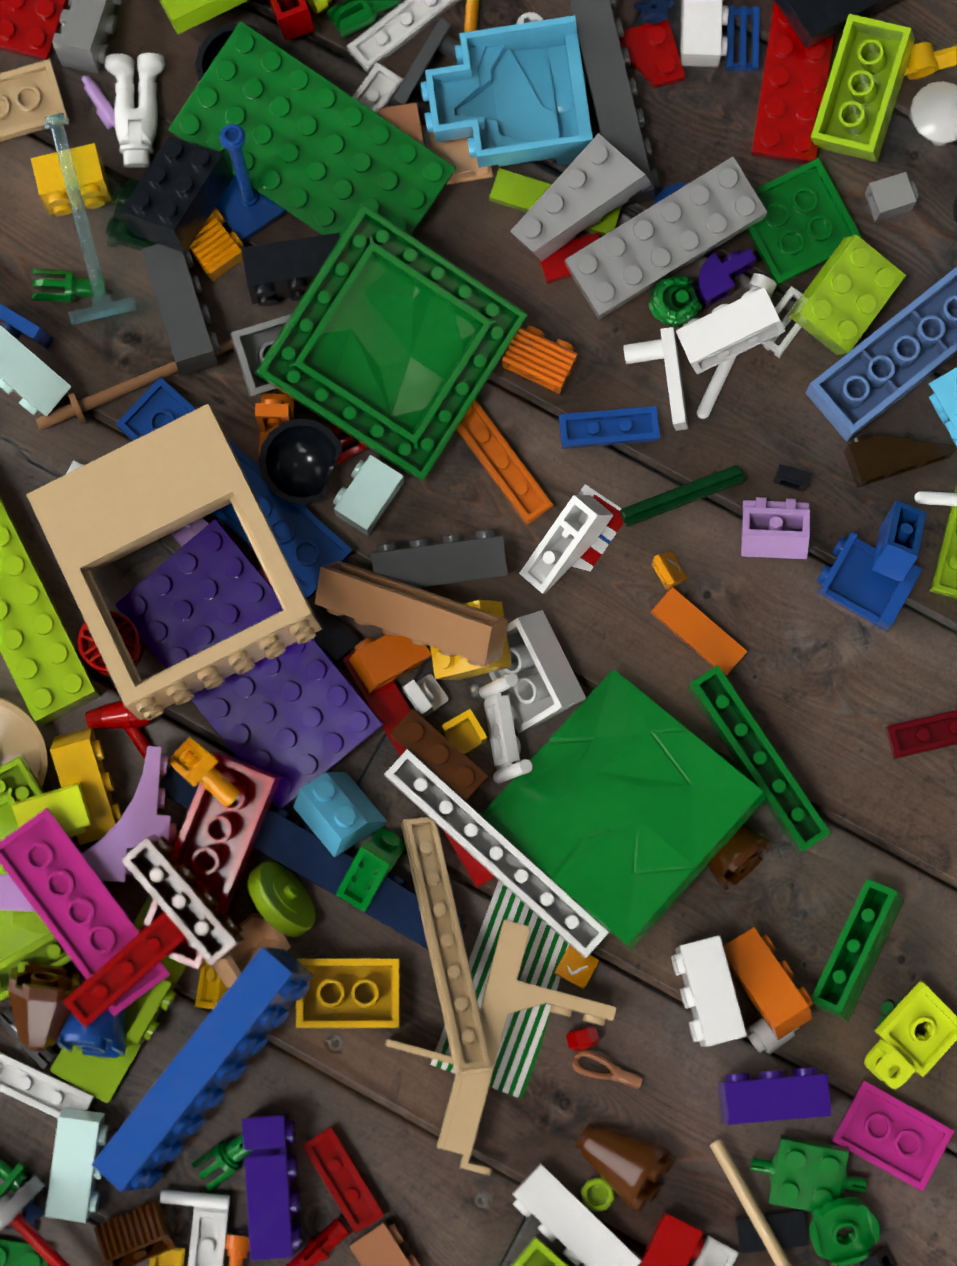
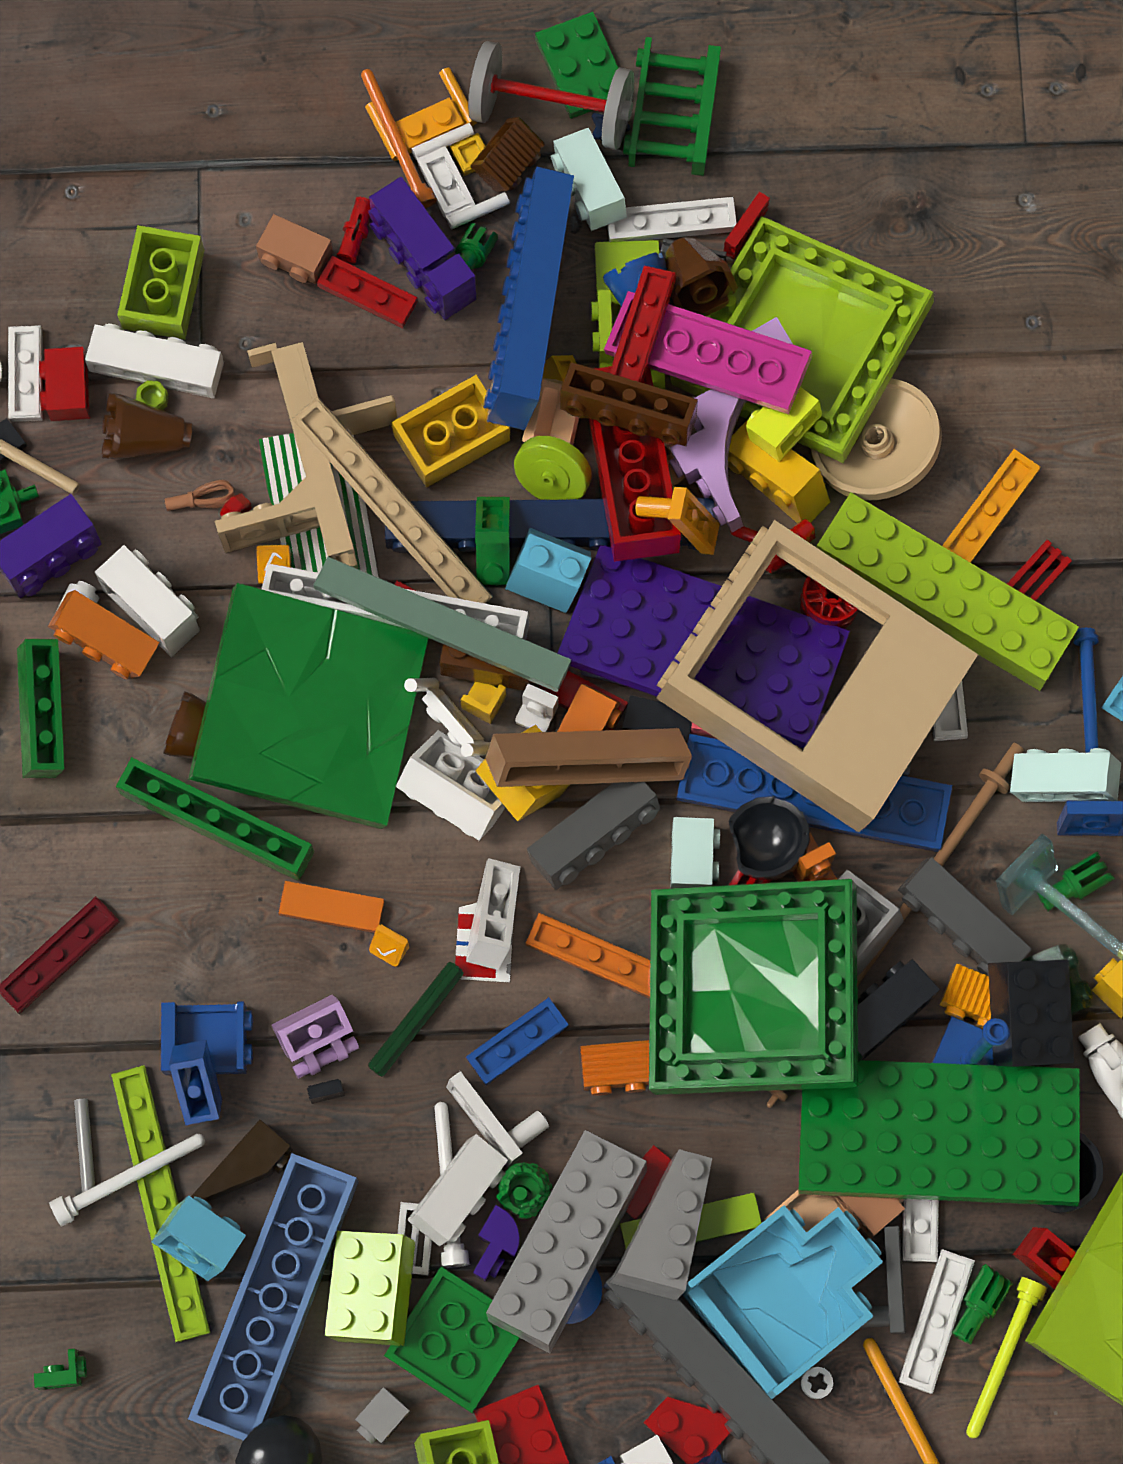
camera: 150 degrees right, 5 degrees down
(467, 805) = (442, 624): none -> sand green tile

